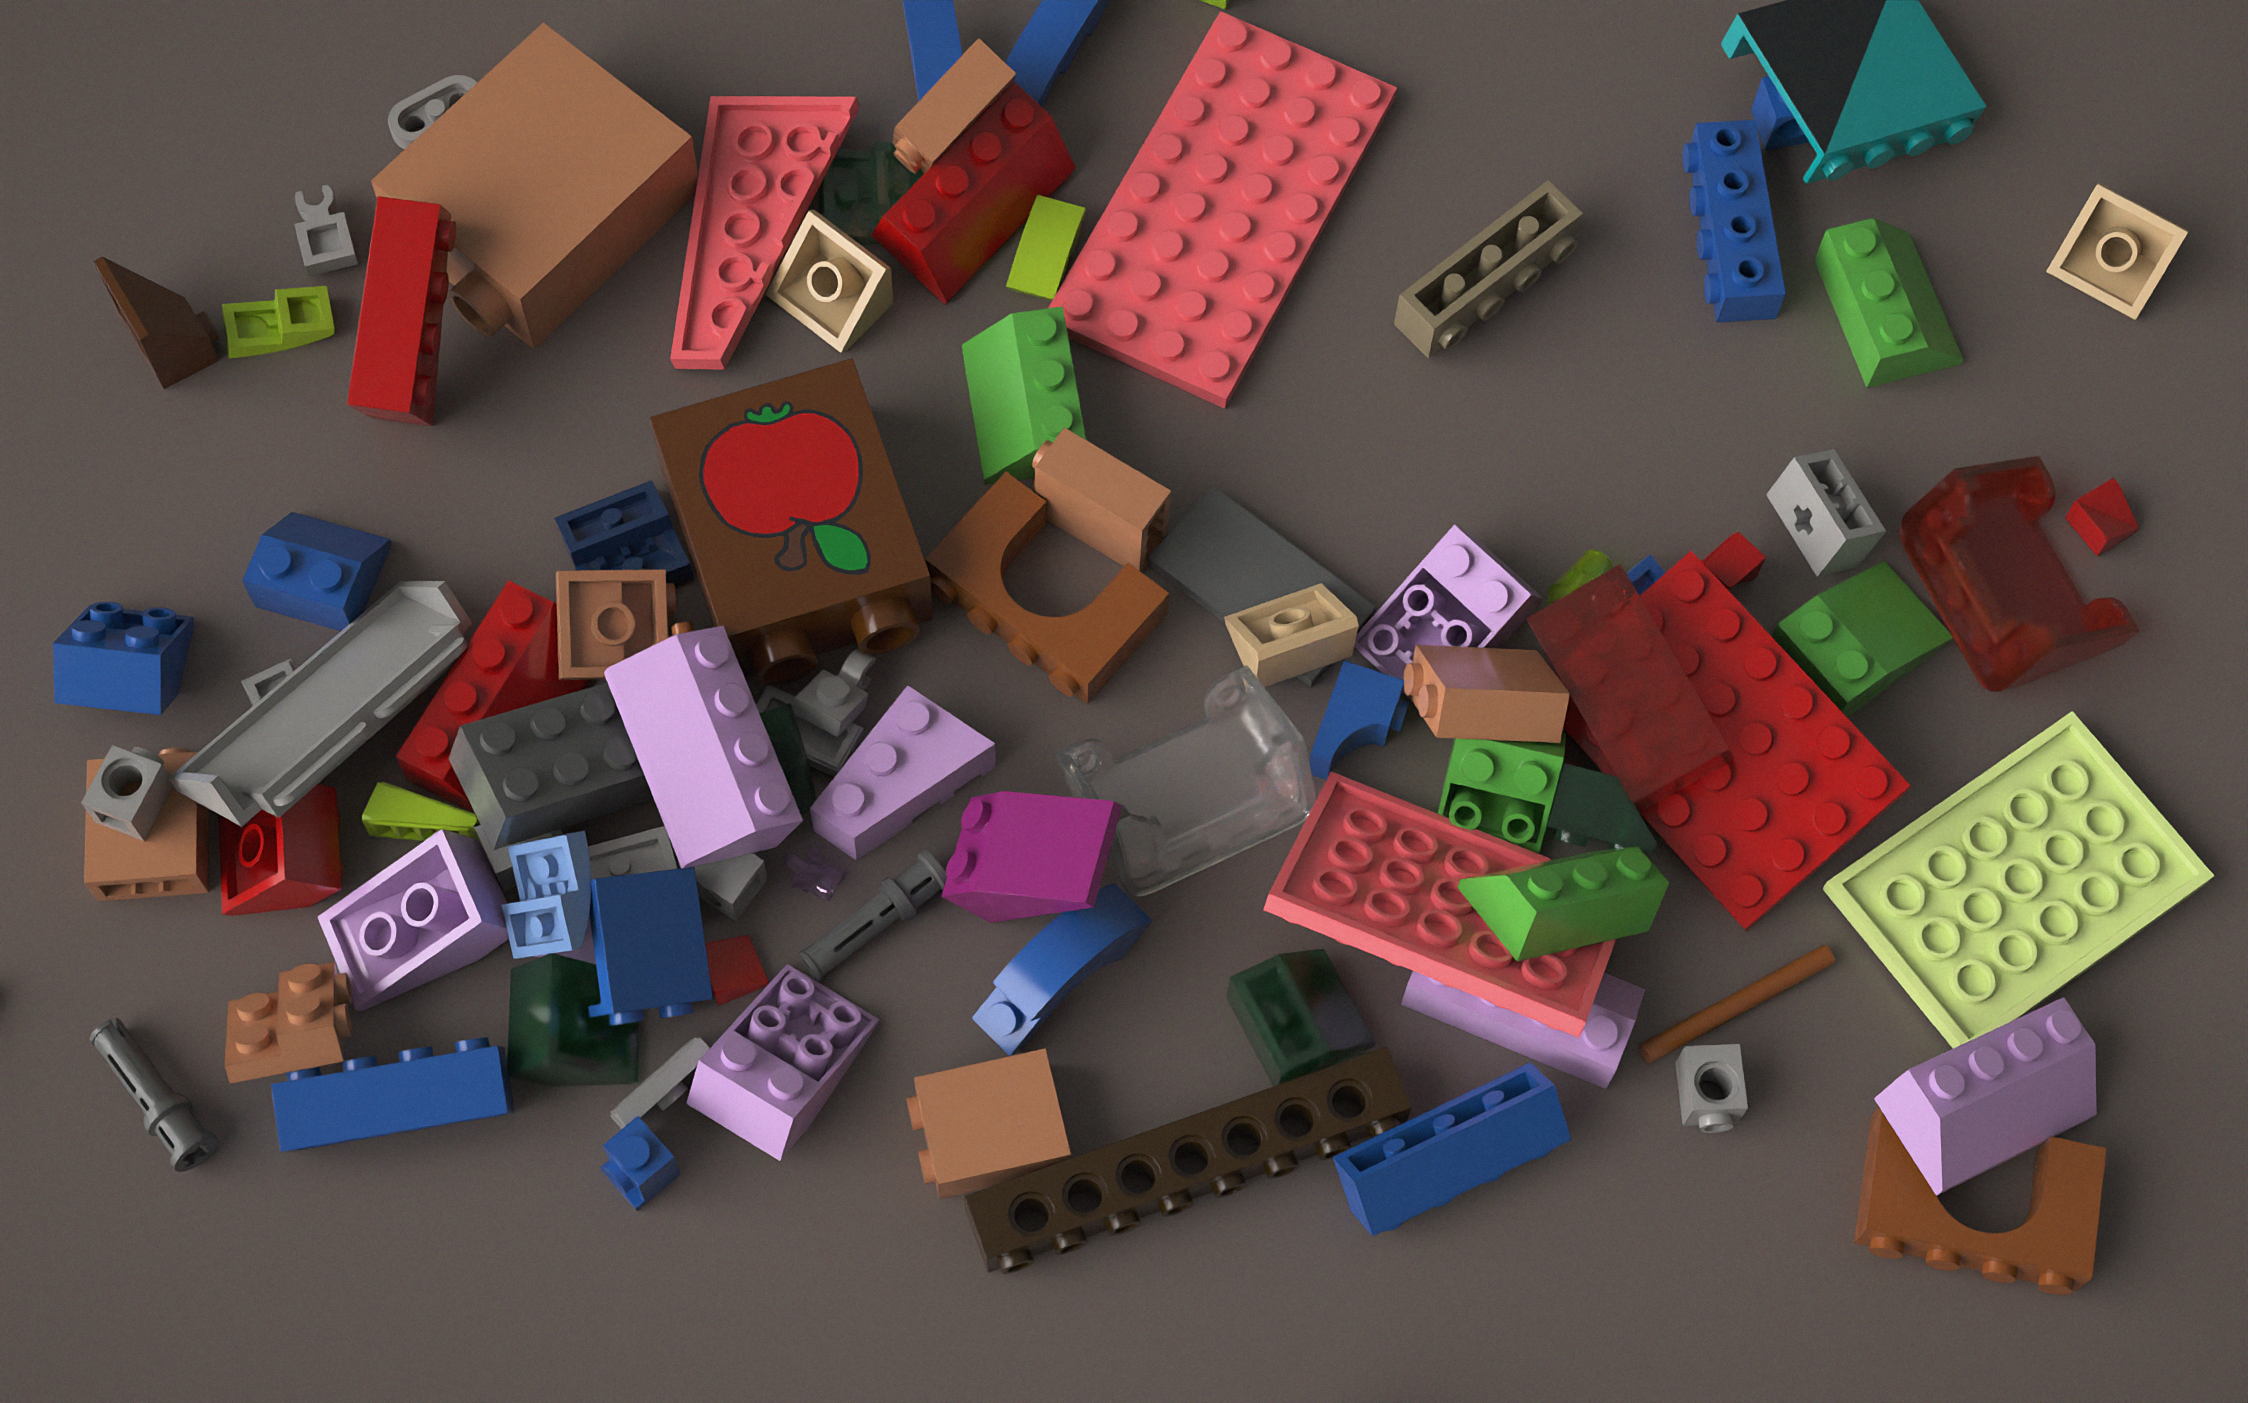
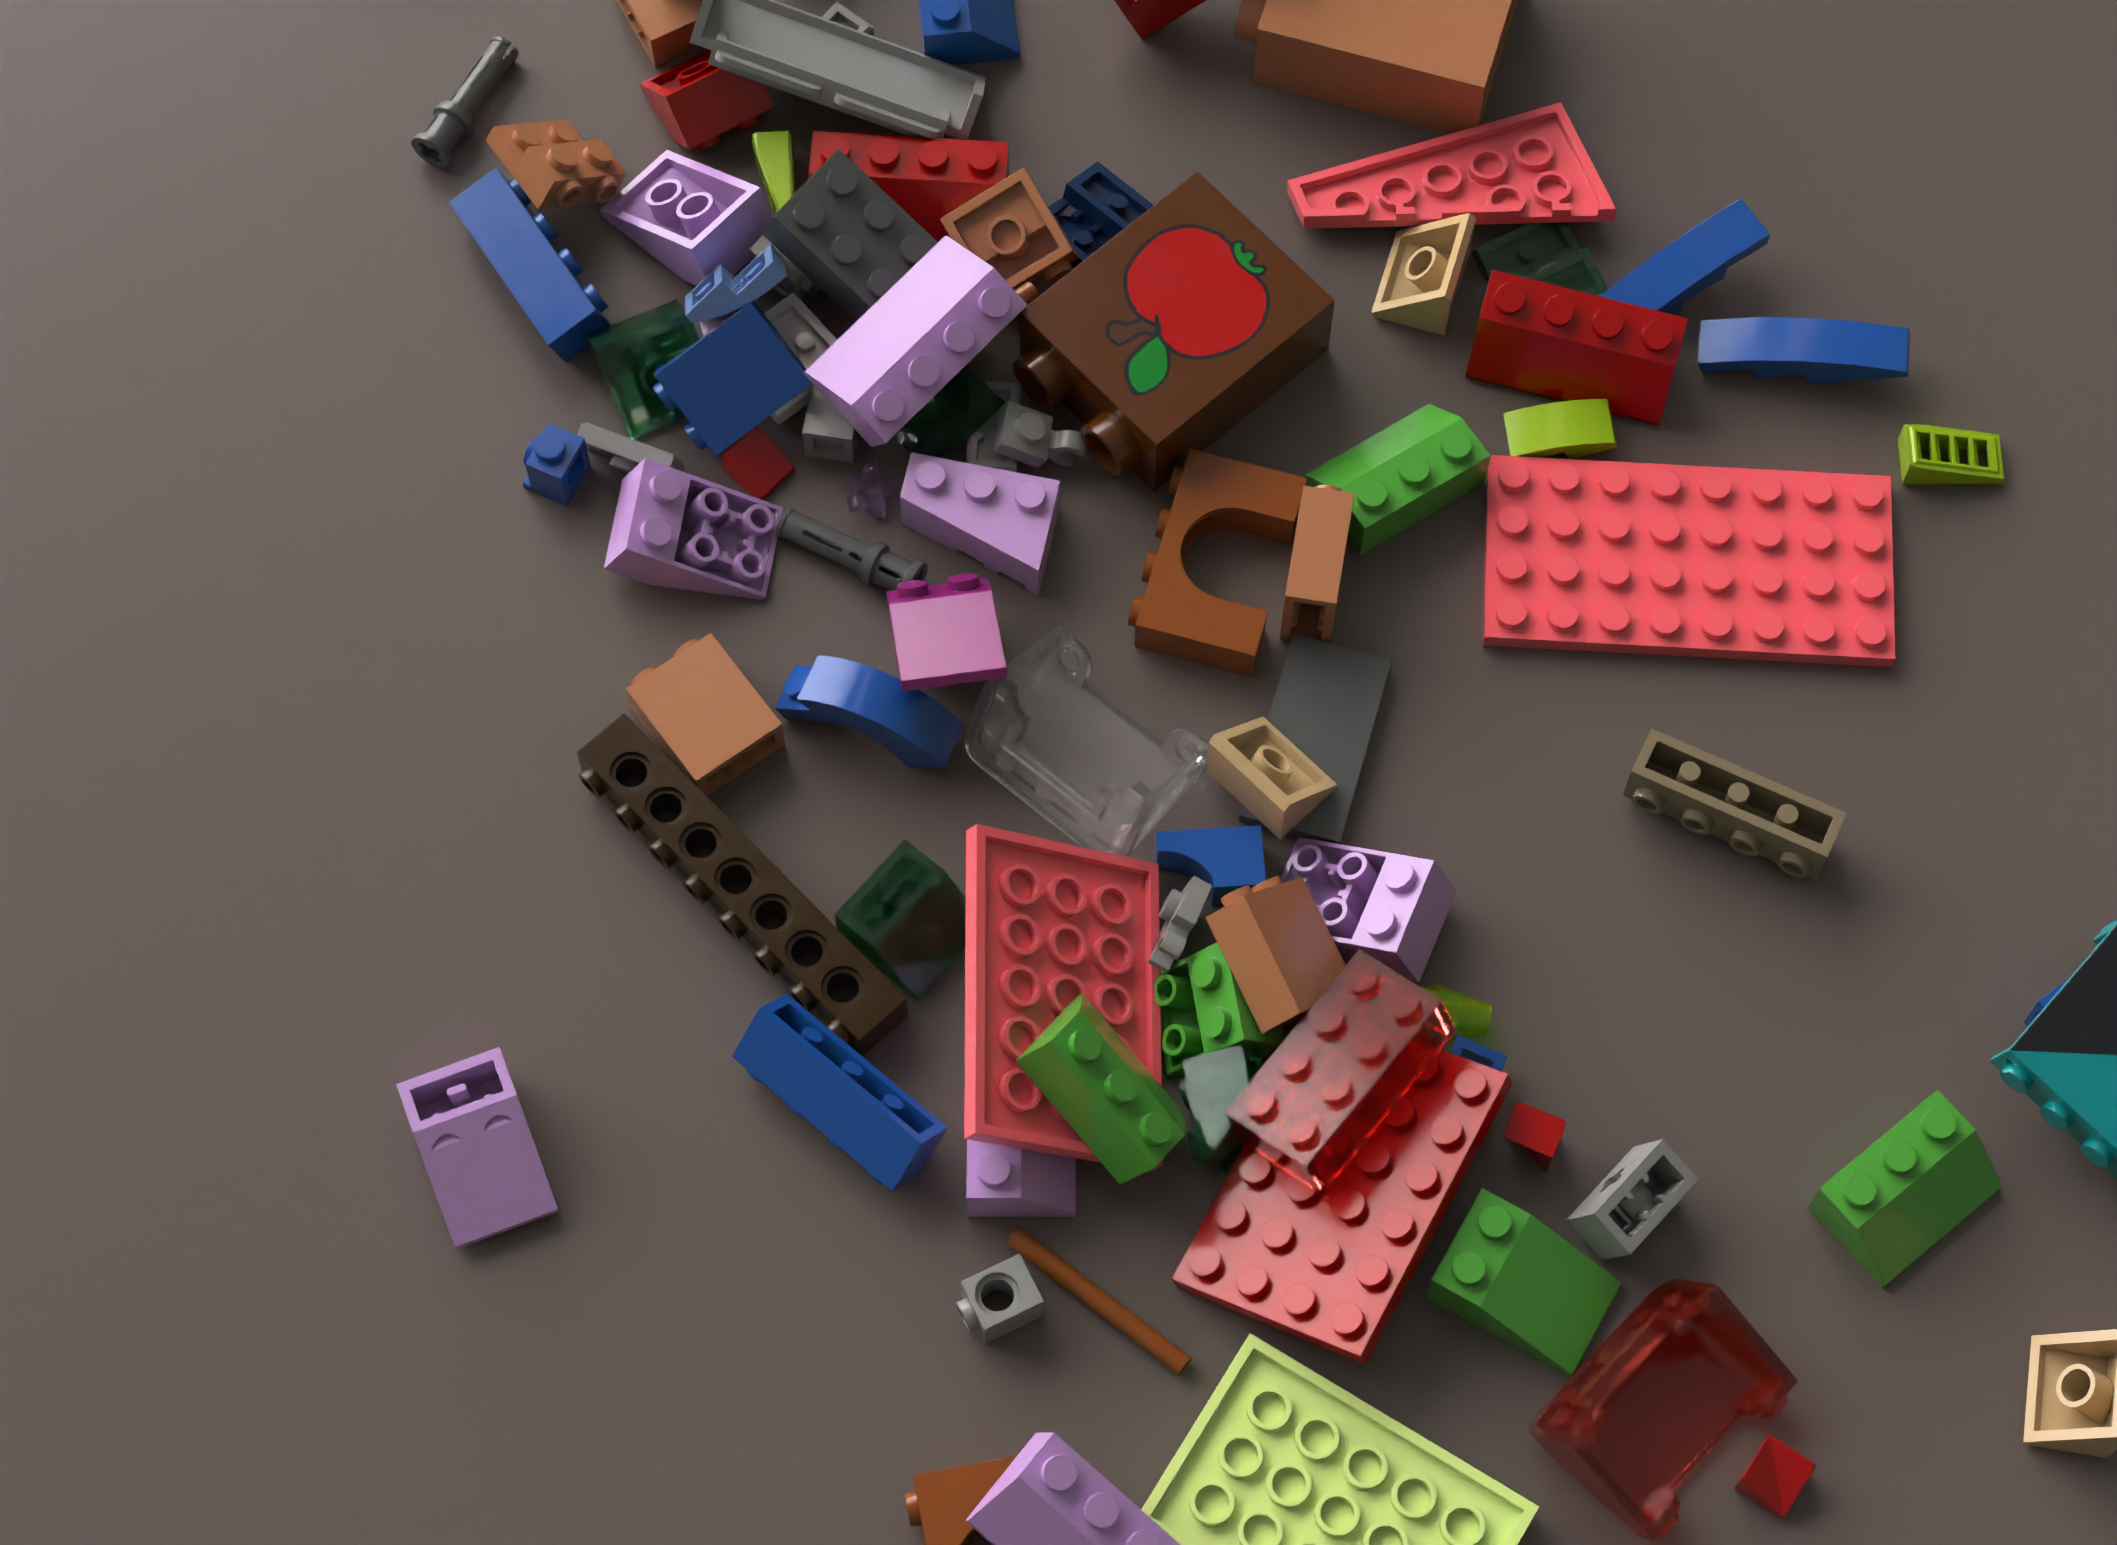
camera: 70 degrees right, 0 degrees up
(951, 107) = (1634, 275): nougat brick -> none
(1402, 770) = (1181, 915): none -> light grey plate
(1734, 221) = (1917, 1012): blue brick -> none

